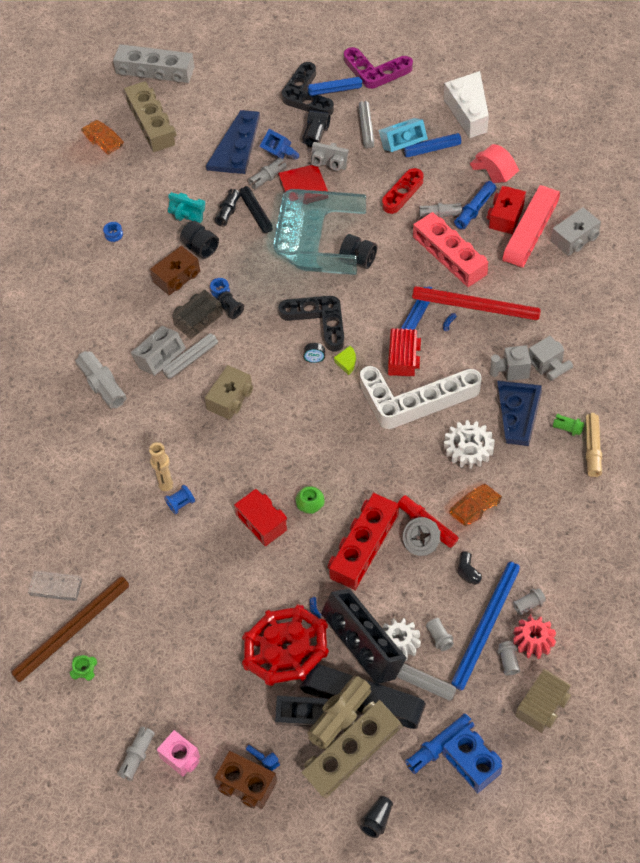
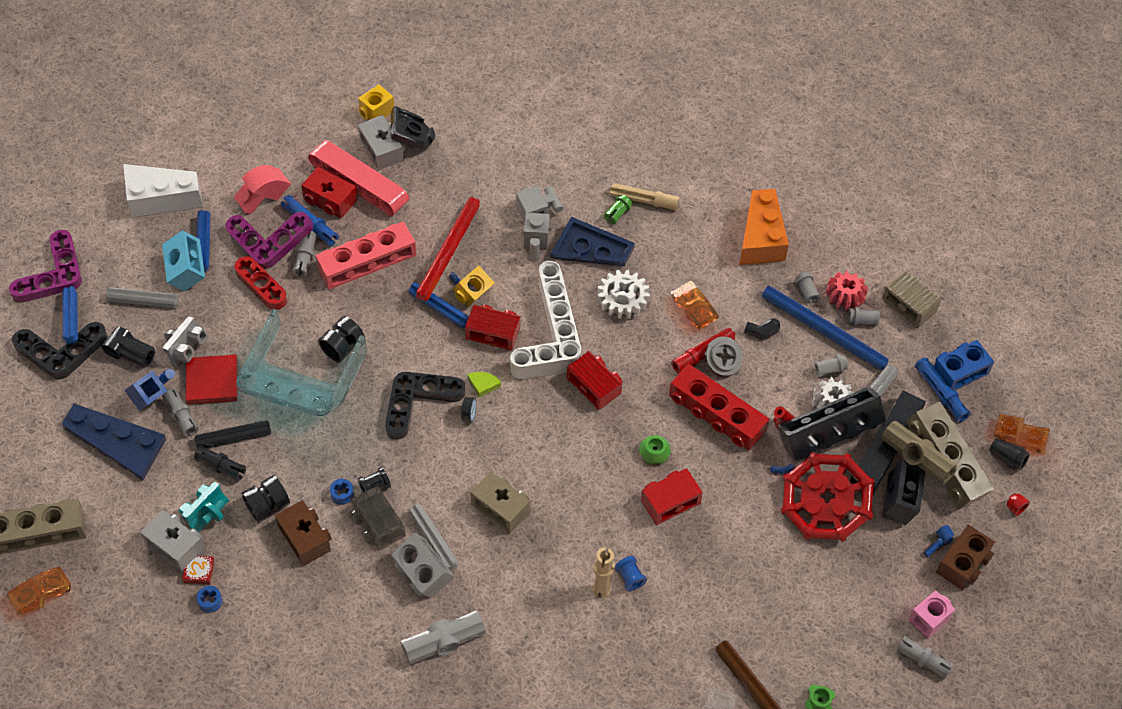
camera: 85 degrees left, 0 degrees up
(137, 220) = (199, 570): none -> tile
(152, 196) = (173, 540): none -> light grey brick
(319, 829) = (1017, 504): none -> red hinge
(362, 594) = (781, 415): none -> red arm
(368, 438) = (594, 379): none -> red brick
(407, 830) = (1015, 431): none -> clear orange slope
(434, 184) = (265, 246): none -> magenta beam
(445, 334) = (479, 280): none -> yellow brick
(585, 548) = (764, 230): none -> orange wedge
(596, 247) = (410, 129): none -> black tile
(617, 218) = (375, 103): none -> yellow brick

